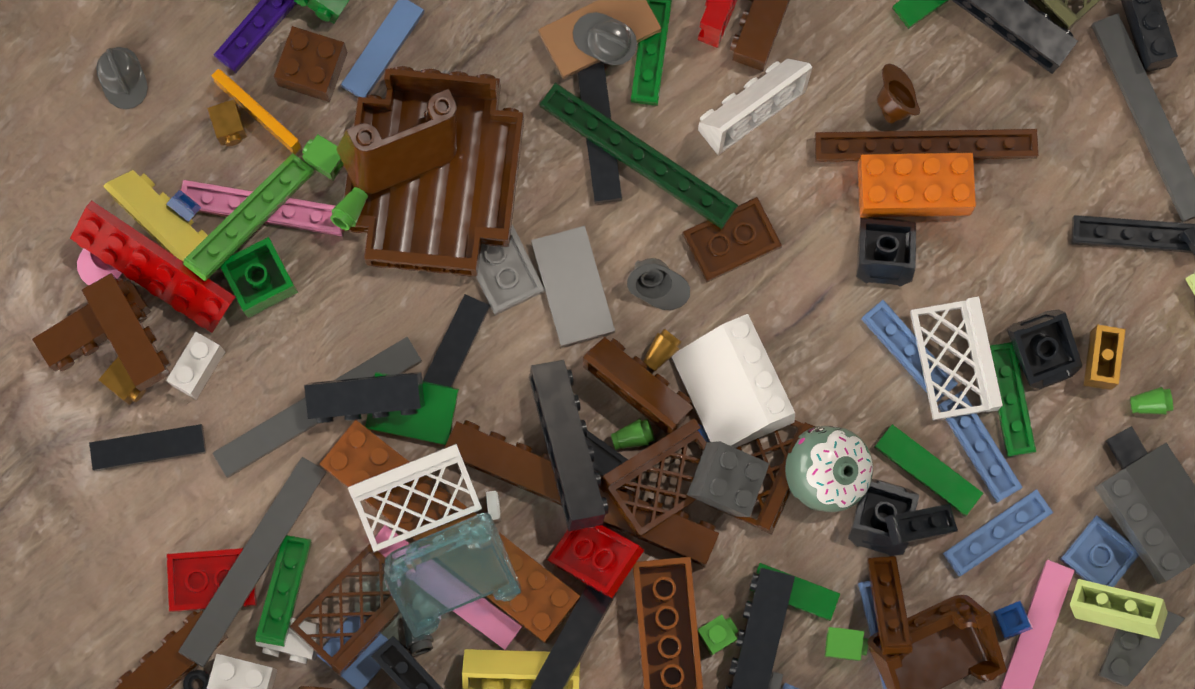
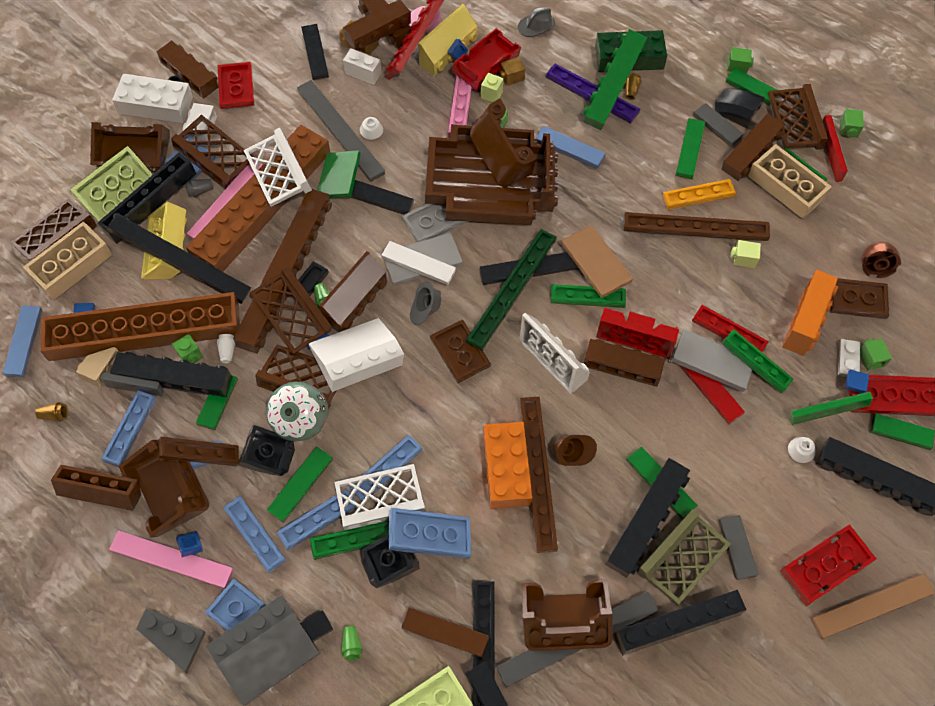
camera: 85 degrees right, 15 degrees down
(201, 161) = (485, 58): none -> red piece
(248, 217) = (449, 77): bright green tile -> none
(252, 562) = (242, 98): dark grey tile -> none
(256, 111) = (522, 83): light orange tile -> none
(258, 277) = (416, 90): green brick -> none
(261, 157) = (492, 87): none -> yellowish green brick
(283, 591) = (226, 115): green tile -> none
(310, 64) = (553, 108): reddish brown brick -> none
(328, 360) = (371, 128): none -> white cone
(348, 210) = (458, 124): bright green cone -> none
(364, 396) = (342, 143): black brick -> none
(449, 572) = (226, 185): clear light blue windscreen -> none
(493, 505) = (276, 221): white tile -> none
(567, 445) = (310, 251): black brick -> none
(586, 289) = (418, 263): none -> white tile
(596, 557) = (239, 274): red plate -> none
(604, 38) = (589, 262): dark grey piece -> none
(661, 349) = (381, 310): pearl gold cone -> none
(711, 579) = (225, 347): none -> white cone
(728, 479) = (288, 345): dark grey brick -> none
(845, 644) = (177, 426): bright green brick -> none
(886, 251) = (458, 445): black slope -> none
(921, 524) = (256, 473): black tile -> none
(1015, 291) = (429, 533): none -> medium blue tile
(1104, 357) = (382, 602): pearl gold brick -> none
(1119, 608) = (188, 614): yellowish green brick -> none
(1128, 123) = (568, 619): none -> reddish brown windscreen
(1141, 280) = (445, 632): none -> reddish brown tile

